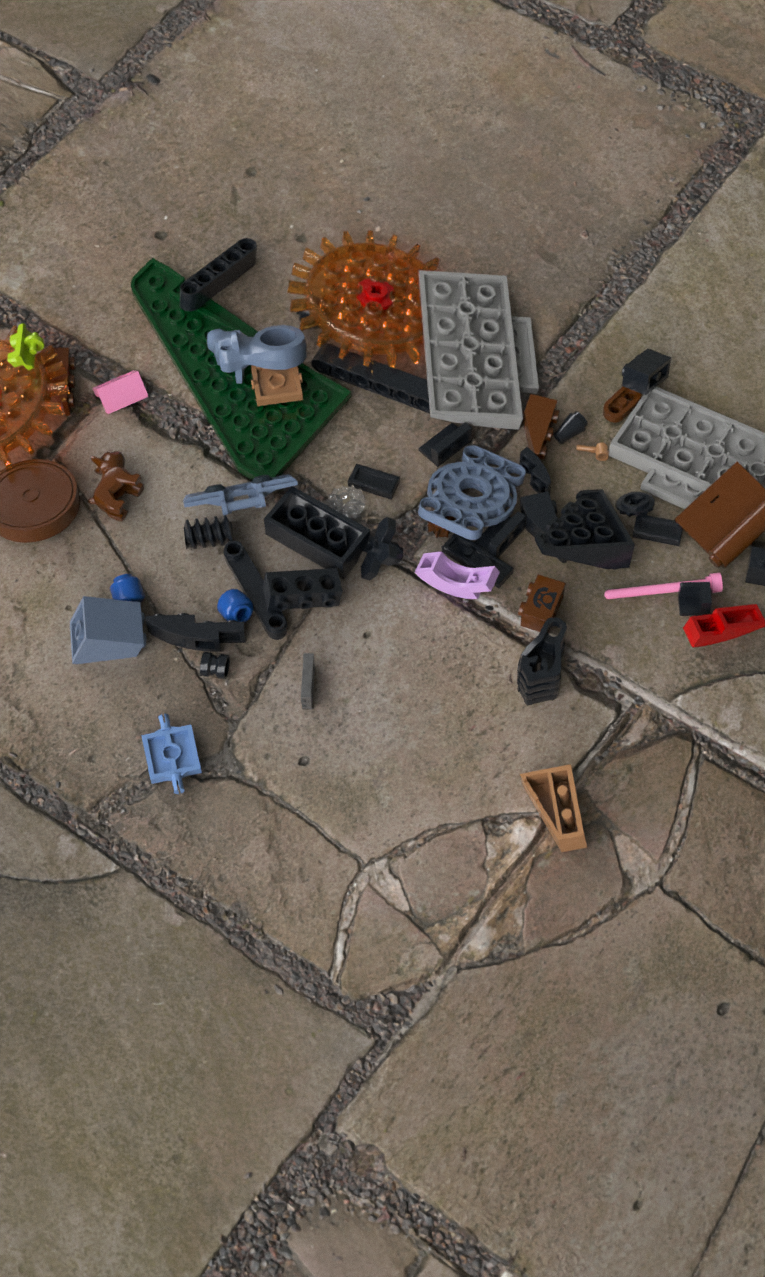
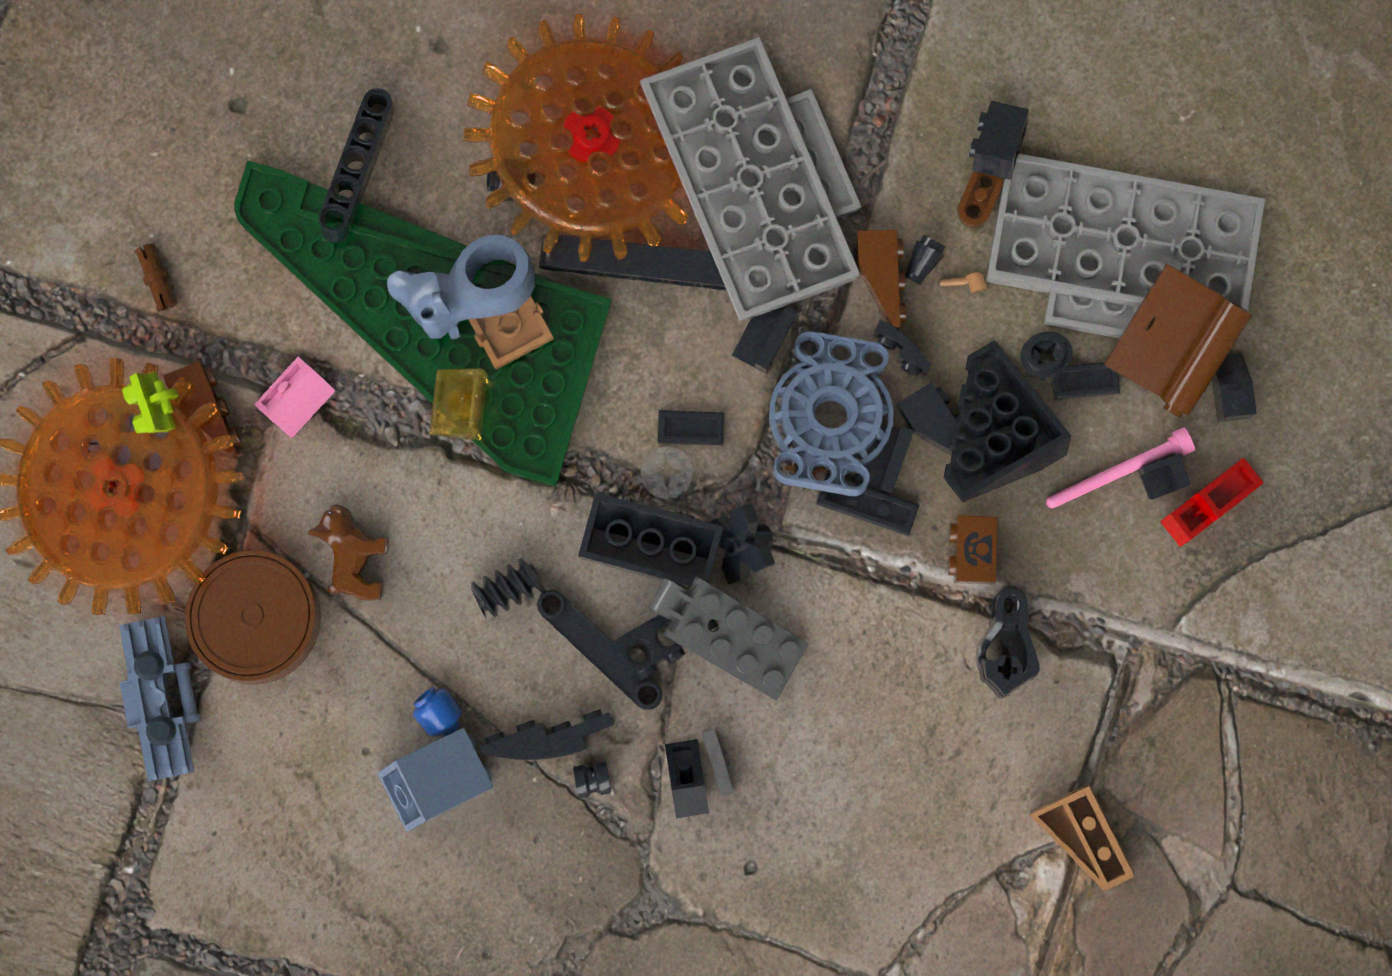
camera: 20 degrees left, 25 degrees up
(64, 304) = (155, 277): none -> reddish brown pin
(171, 754) = (586, 920): medium blue plate -> none
(224, 496) = (509, 529): sand blue piece -> none
(226, 416) = (459, 403): none -> clear yellow slope
(235, 606) = (585, 687): blue head -> none
(280, 686) = (686, 778): none -> black slope
(354, 606) = (742, 642): none -> dark grey hinge
(455, 579) = (854, 548): lavender arch -> none

